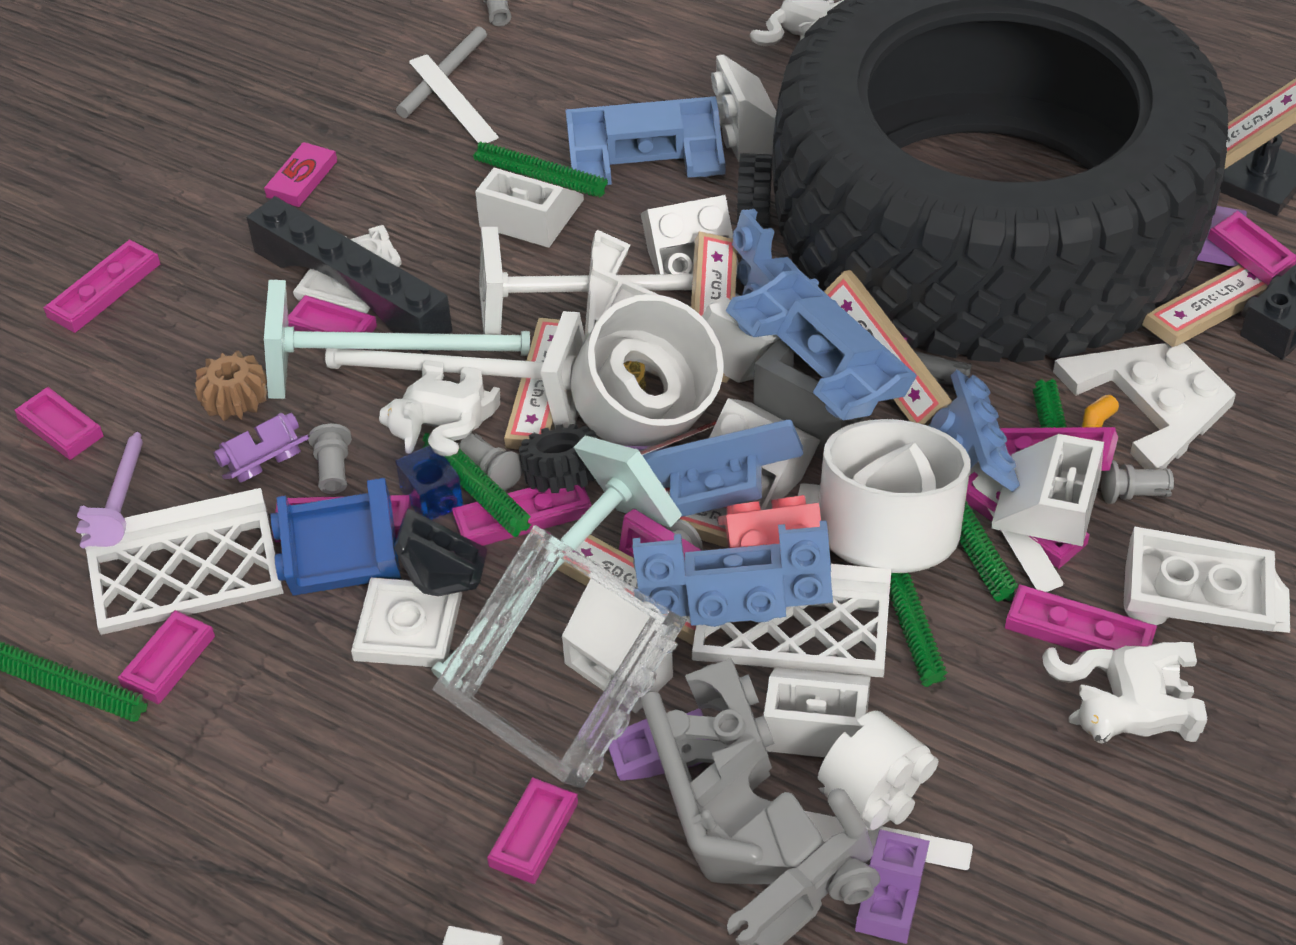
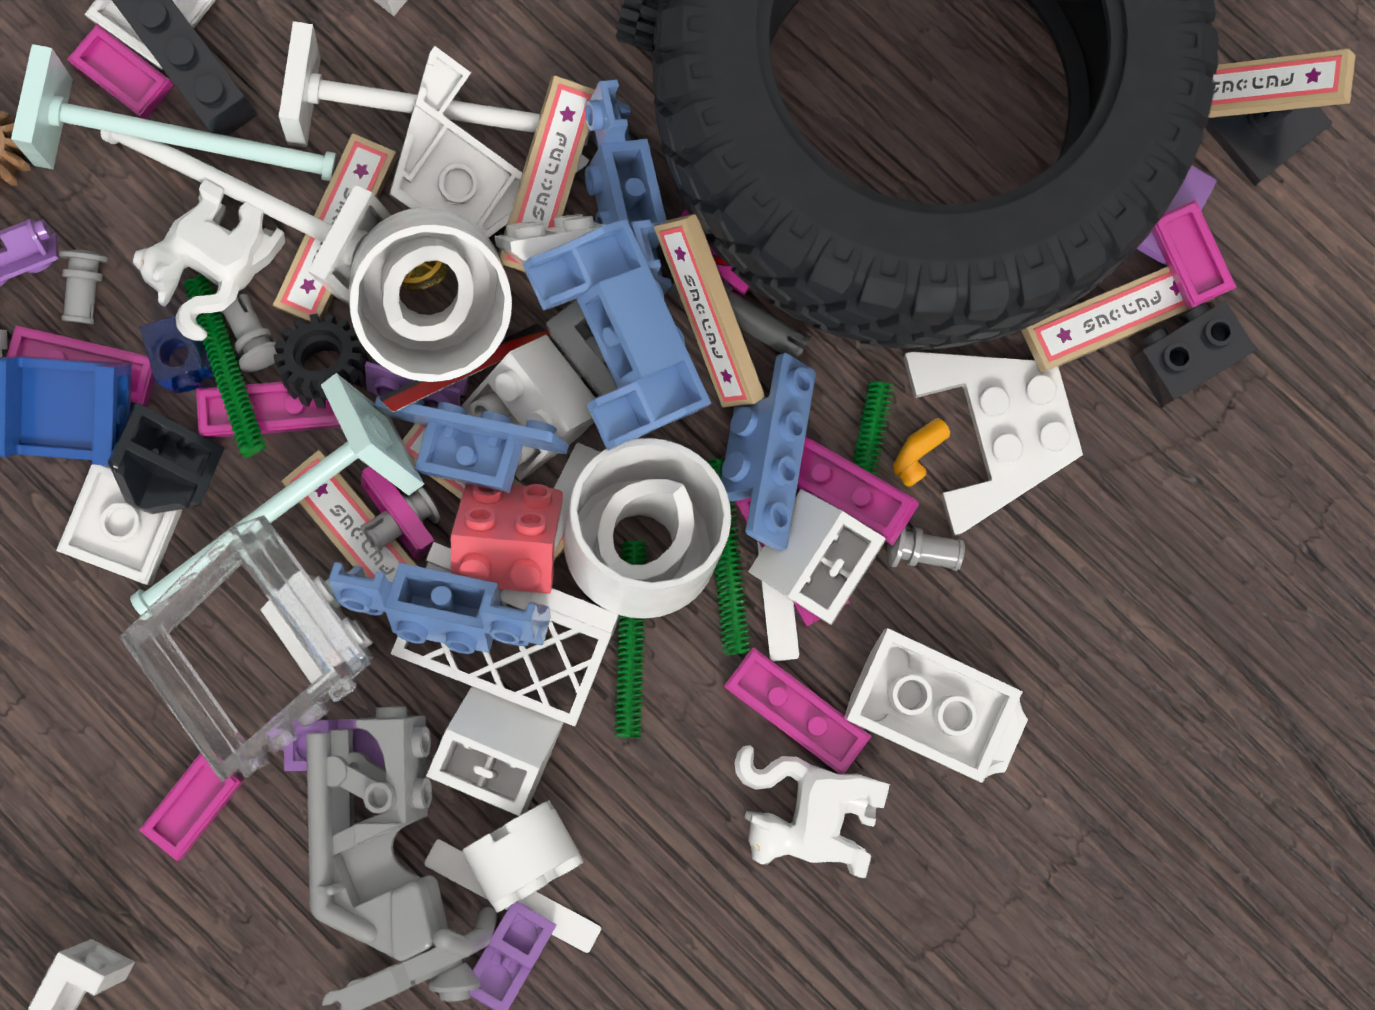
camera: 10 degrees right, 35 degrees up
(673, 230) = (549, 42): white slope -> none

